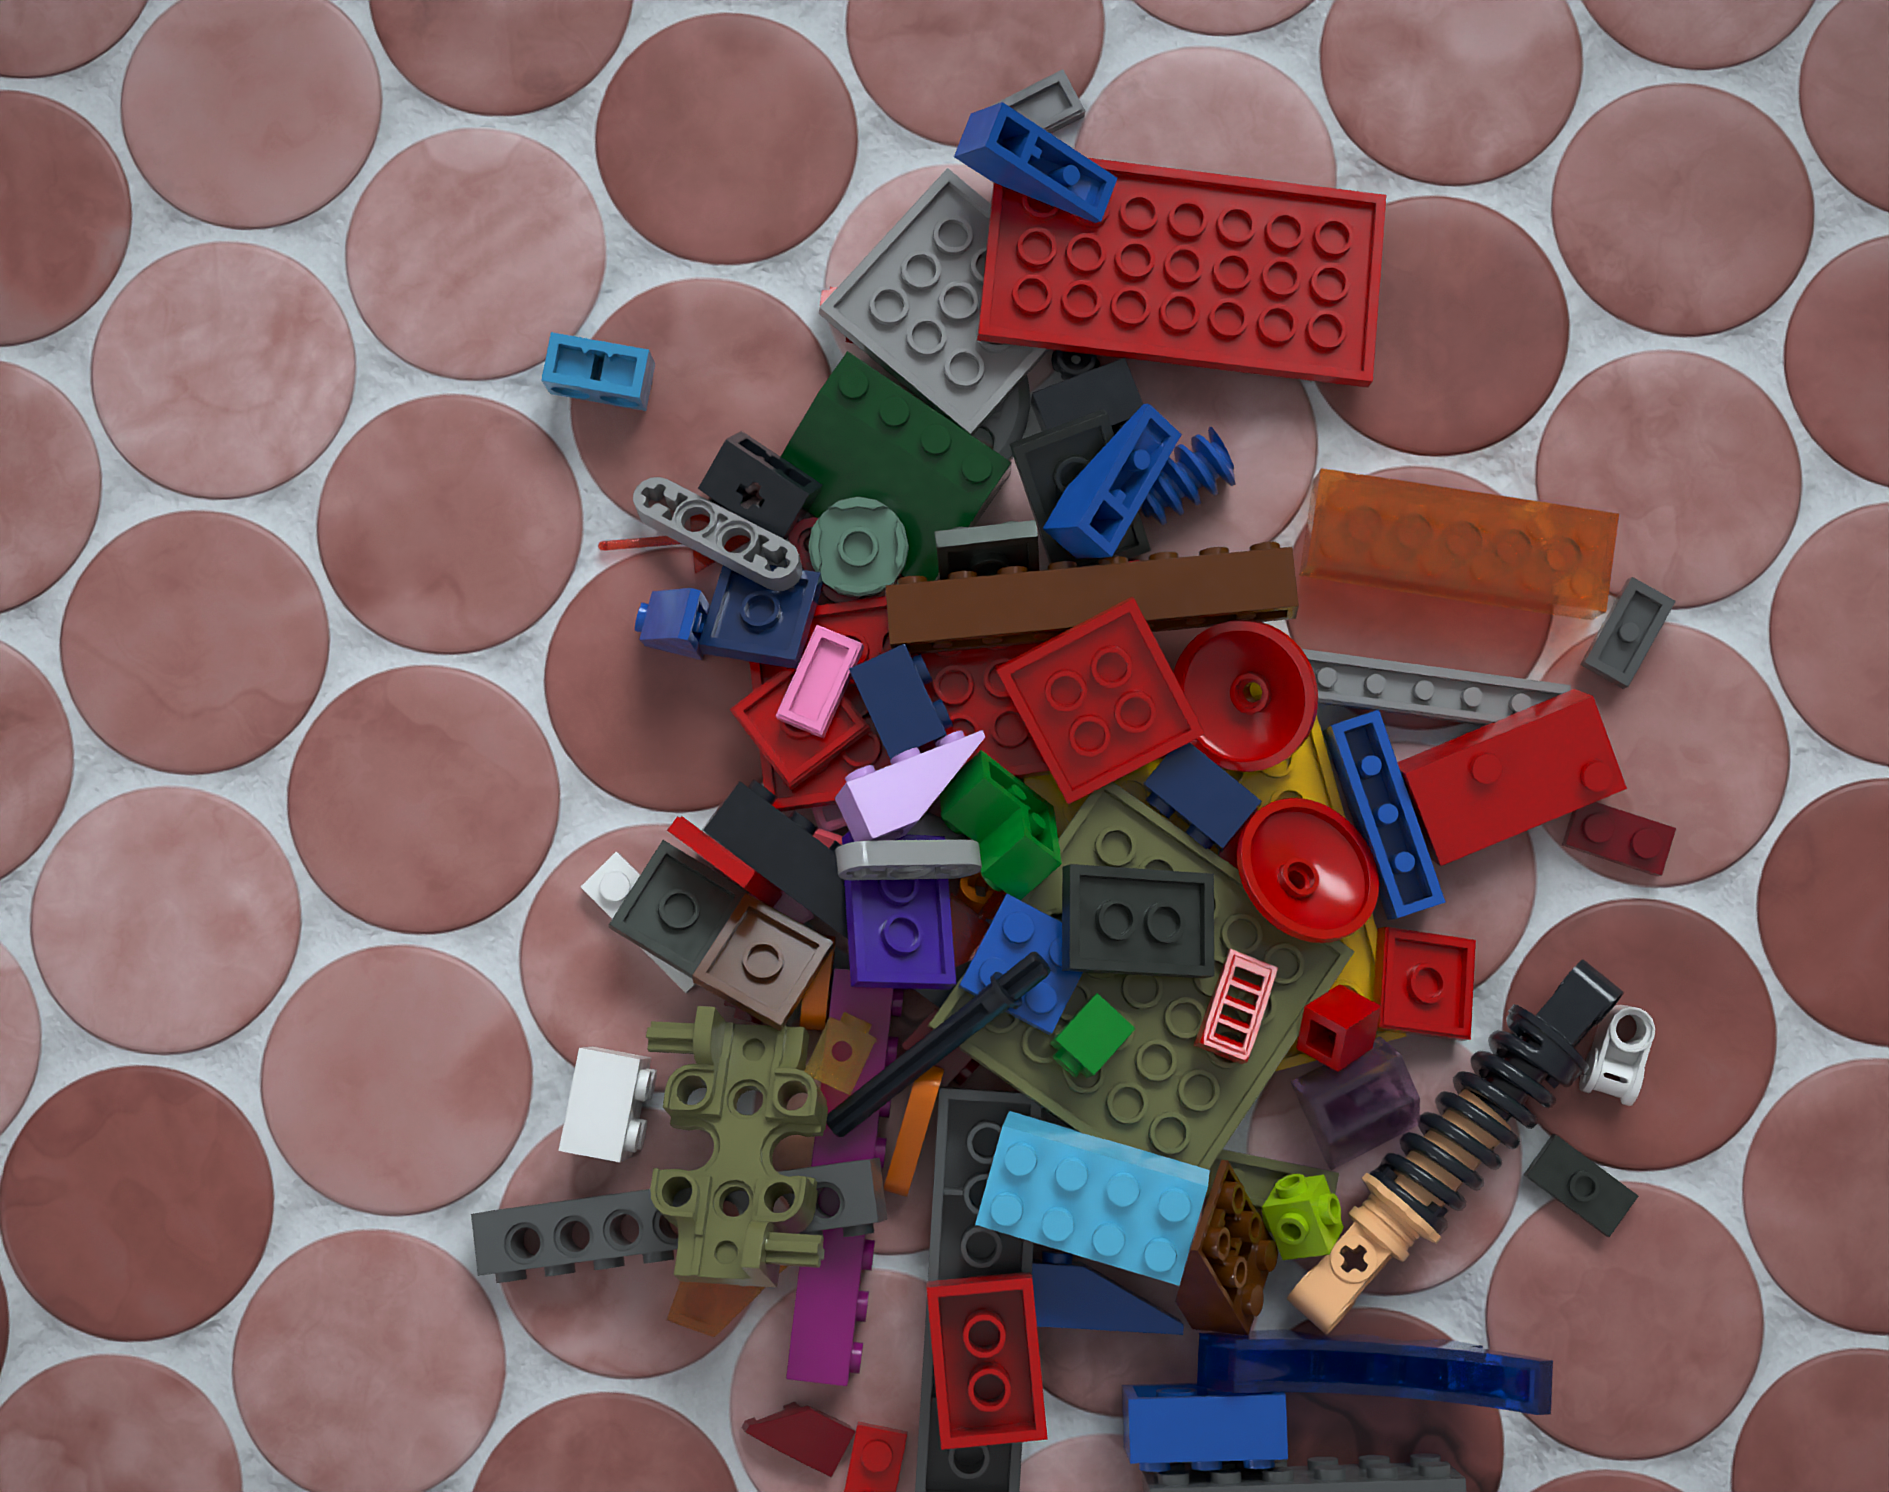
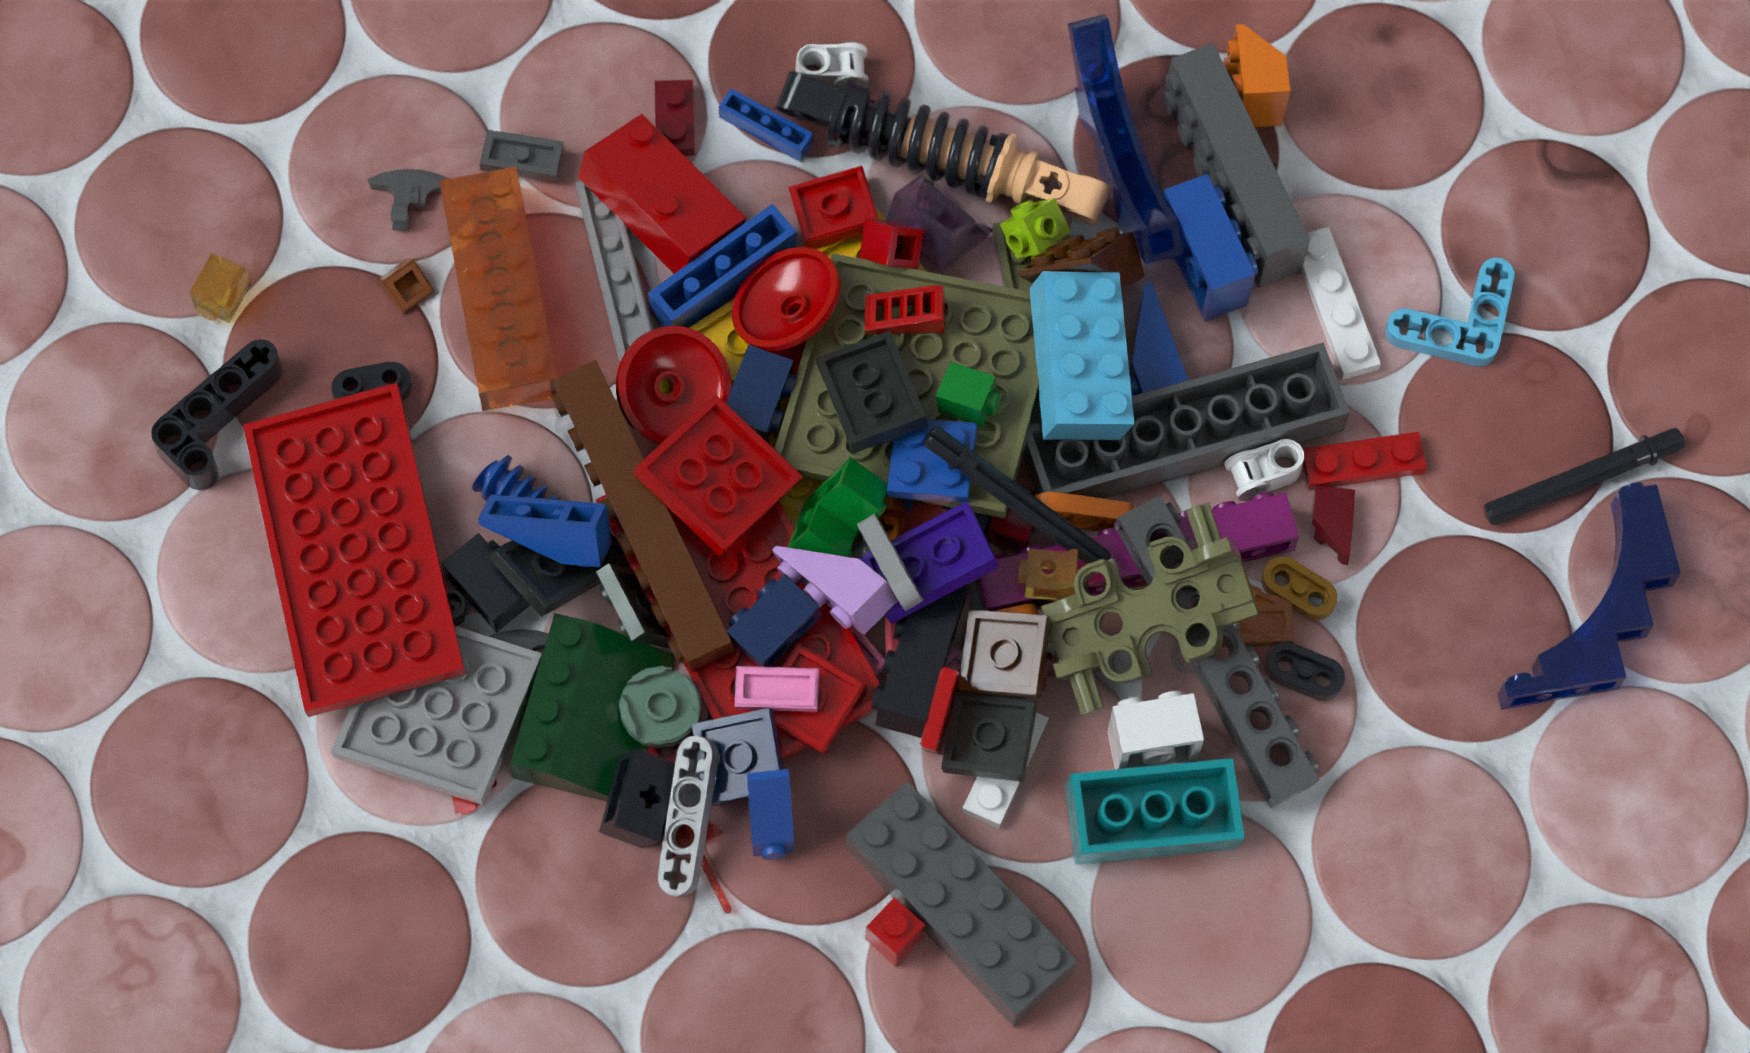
camera: 115 degrees left, 15 degrees down
(497, 717) = (894, 931): none -> red brick
(499, 804) = (961, 903): none -> dark grey brick
(518, 1068) = (1154, 811): none -> teal brick
(598, 371) = (591, 953): dark azure brick -> none
(628, 1318) = (1305, 669): none -> black plate
(733, 1355) = (1300, 587): none -> pearl gold plate
(895, 1373) = (1259, 473): none -> white piece
(986, 1360) = (1225, 389): red brick -> none
(1034, 162) = (312, 673): blue slope -> none
(1048, 102) = (262, 710): flat silver tile -> none
(1393, 360) = (371, 377): none -> black plate
(1414, 177) = (223, 407): none -> black beam
(1506, 442) = (405, 285): none -> dark orange slope
(1569, 943) = (765, 125): none -> blue piece
(1571, 221) = (219, 289): none -> clear yellow brick
(1581, 1185) = (935, 65): pearl dark grey plate -> none
(1627, 488) = (410, 191): none -> dark grey piece

